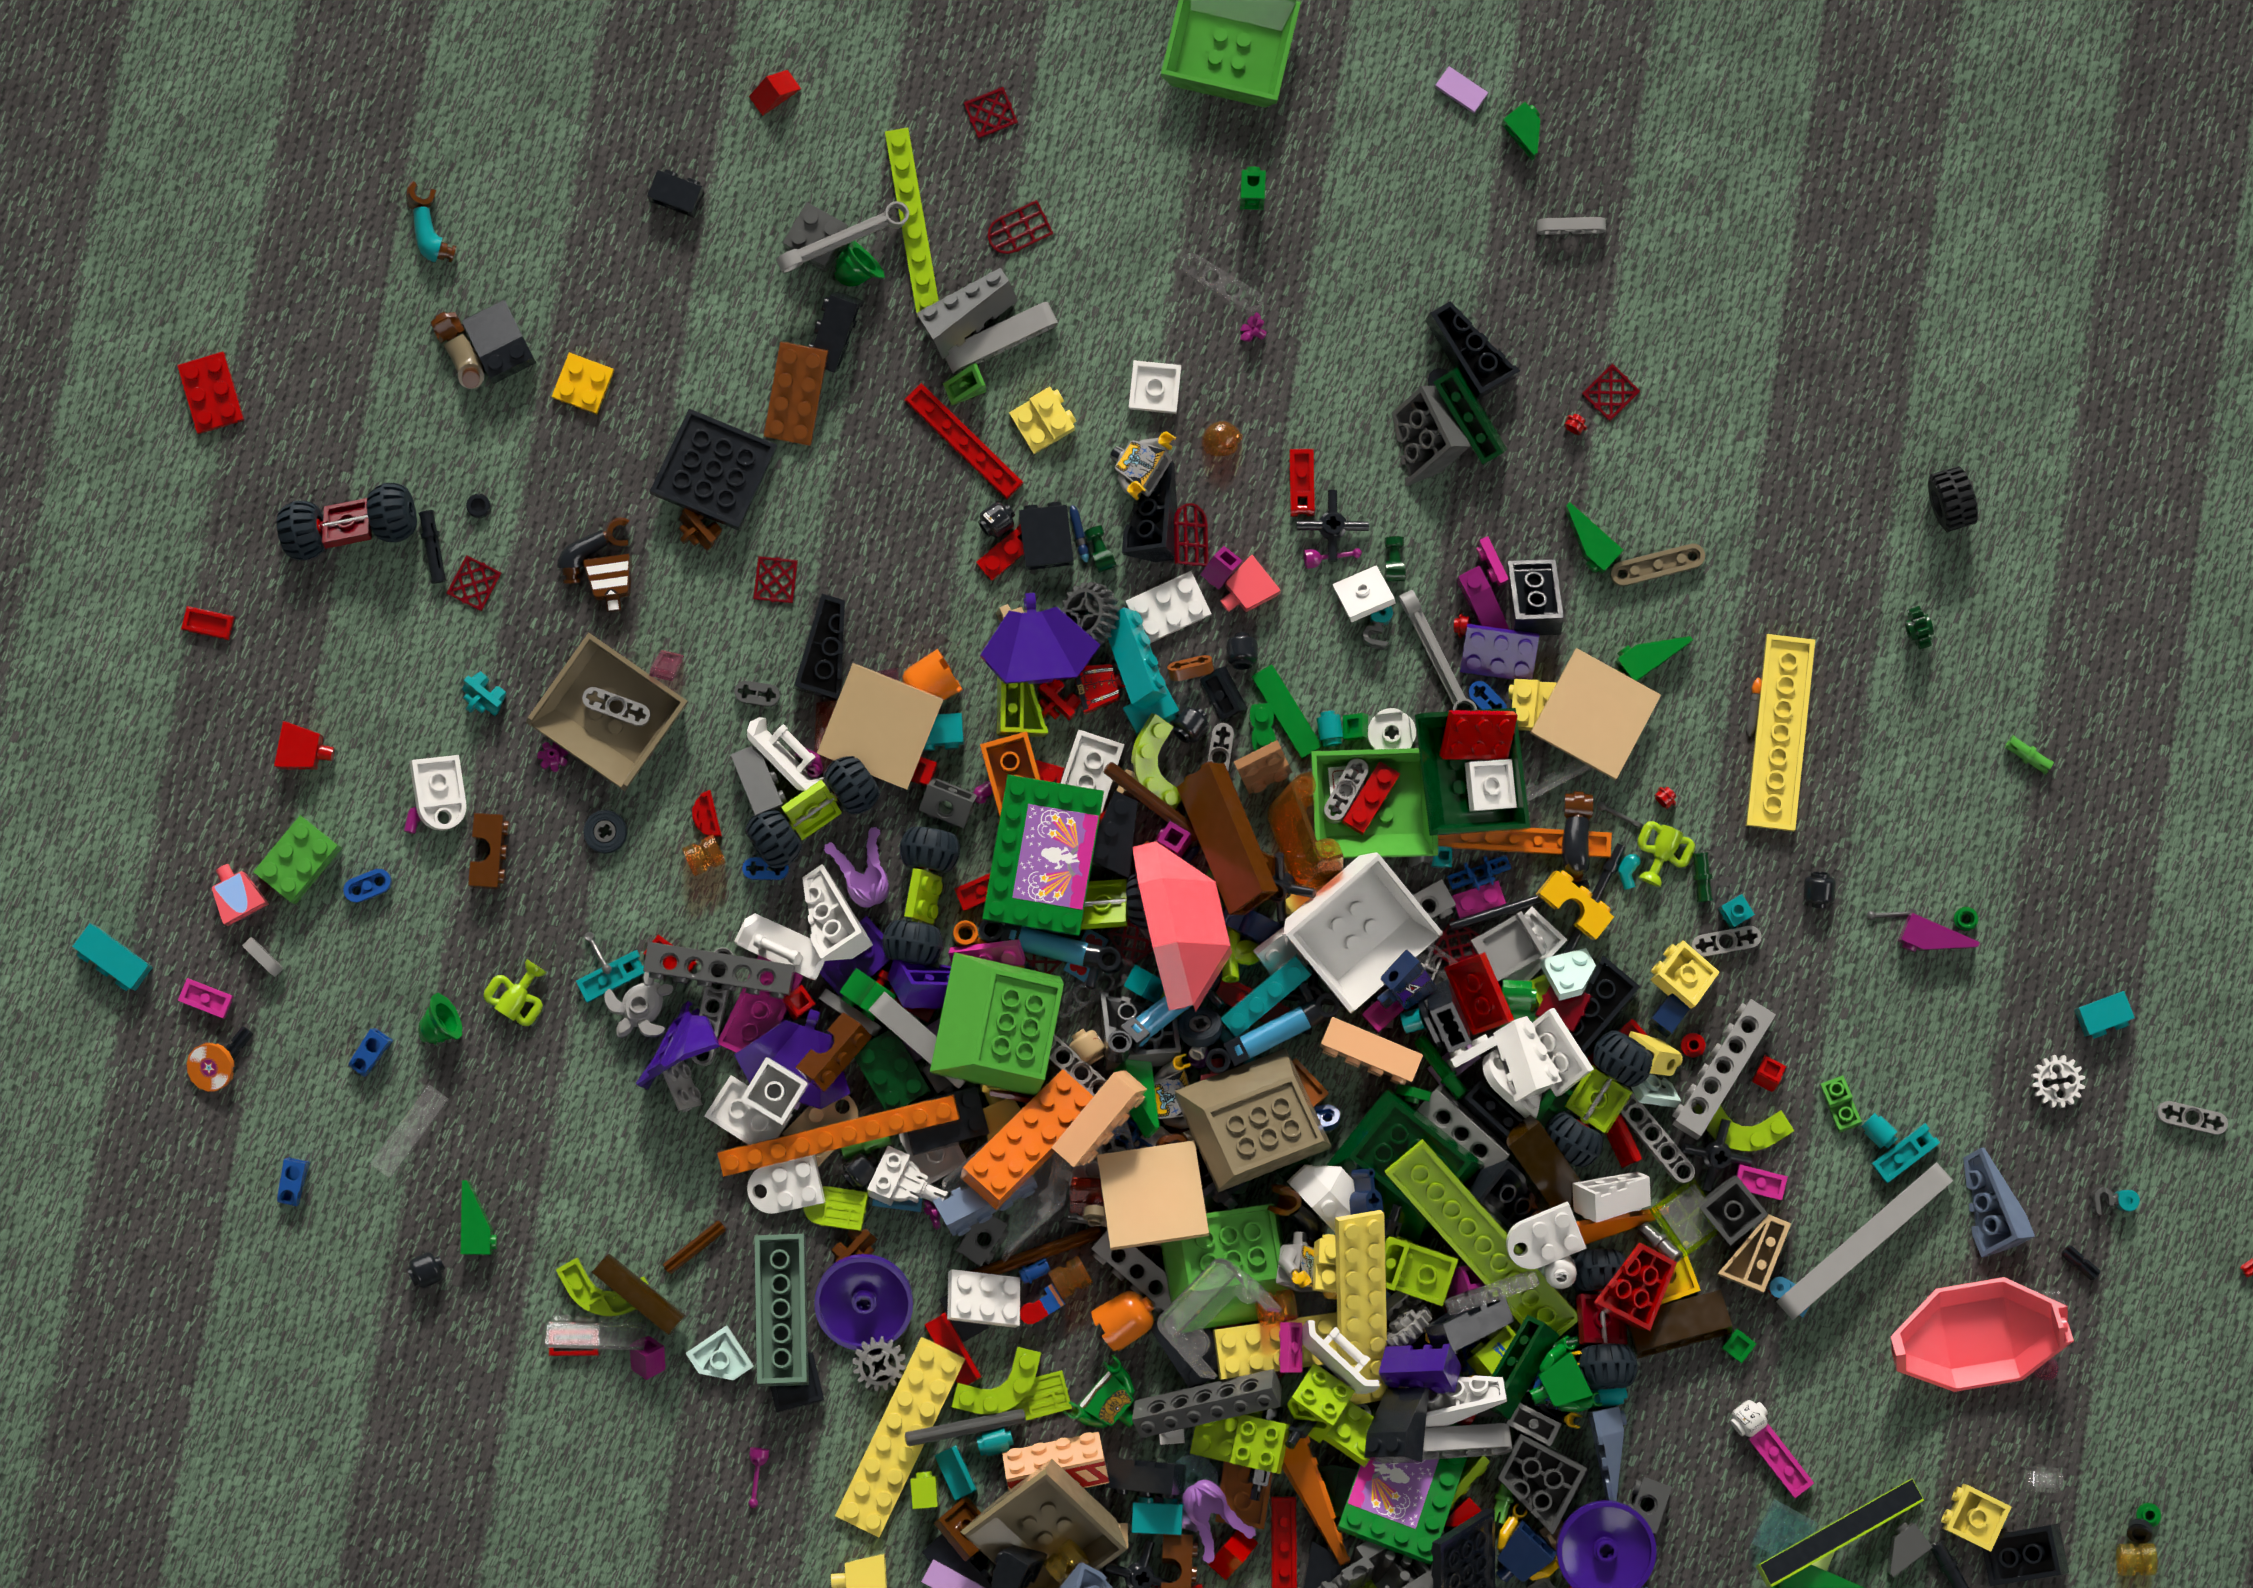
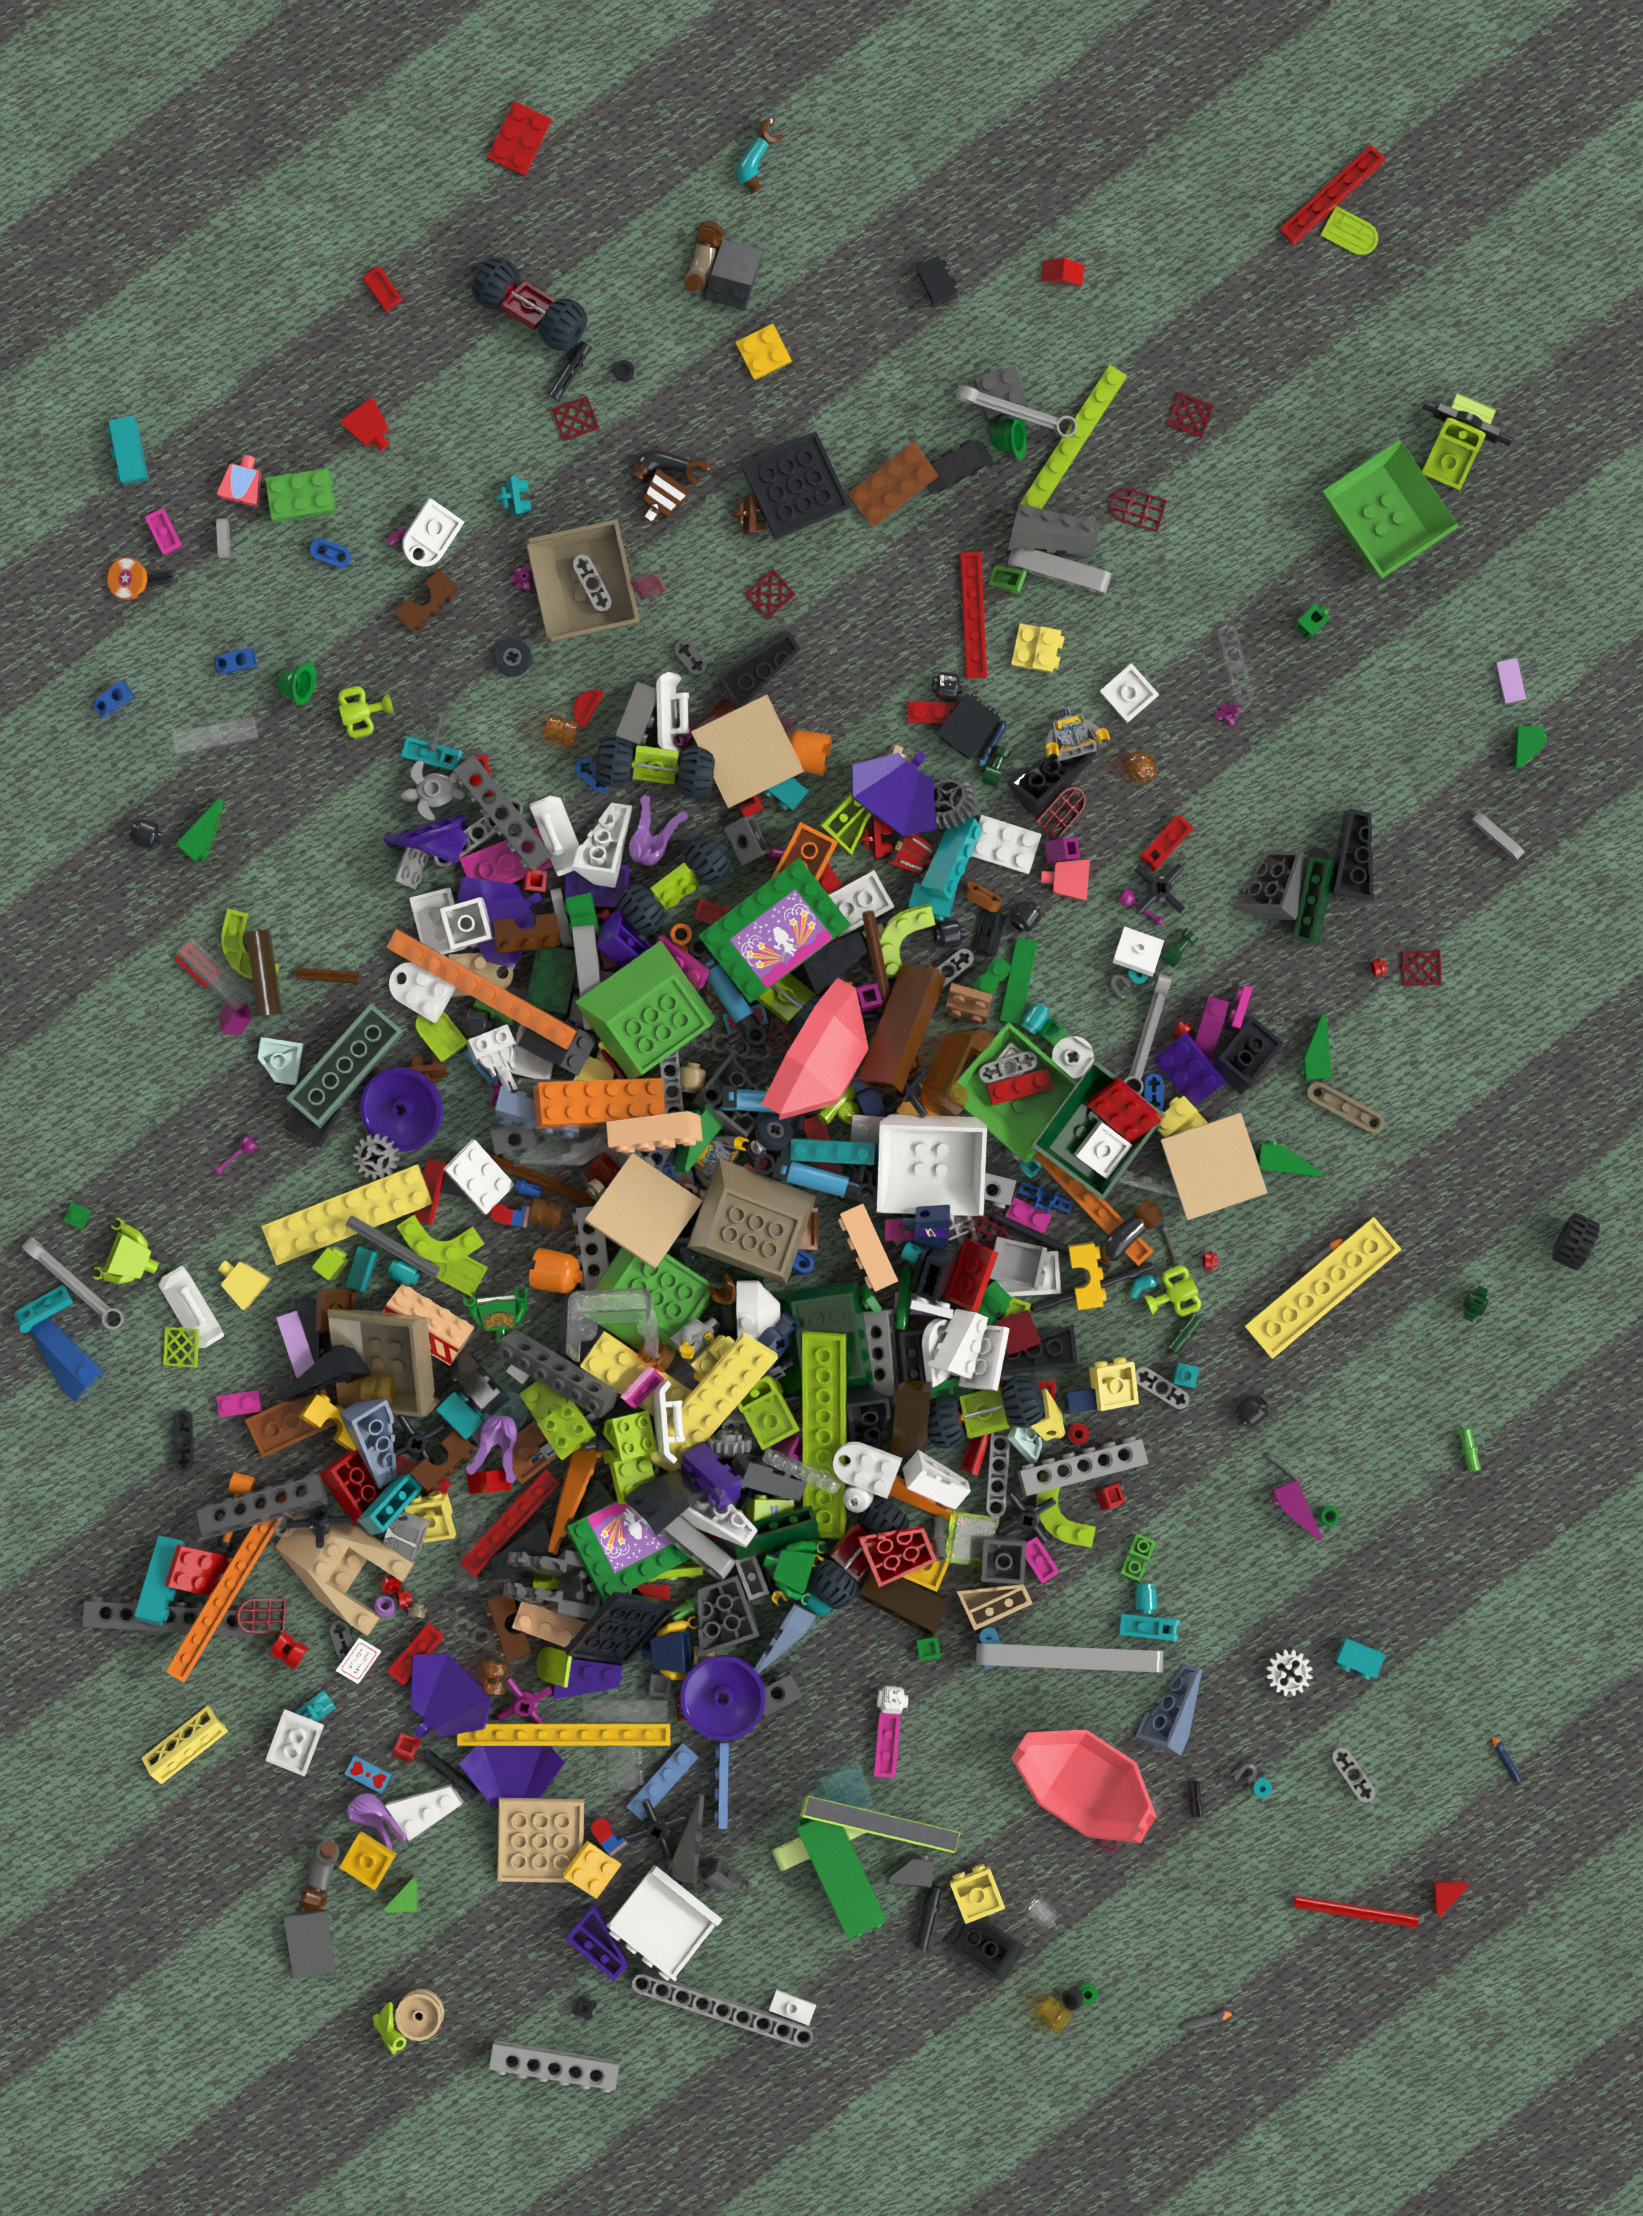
camera: 50 degrees right, 5 degrees up
(1144, 984) = (764, 1071): teal panel -> none
(1569, 972) = (1041, 1315): light aqua plate -> none

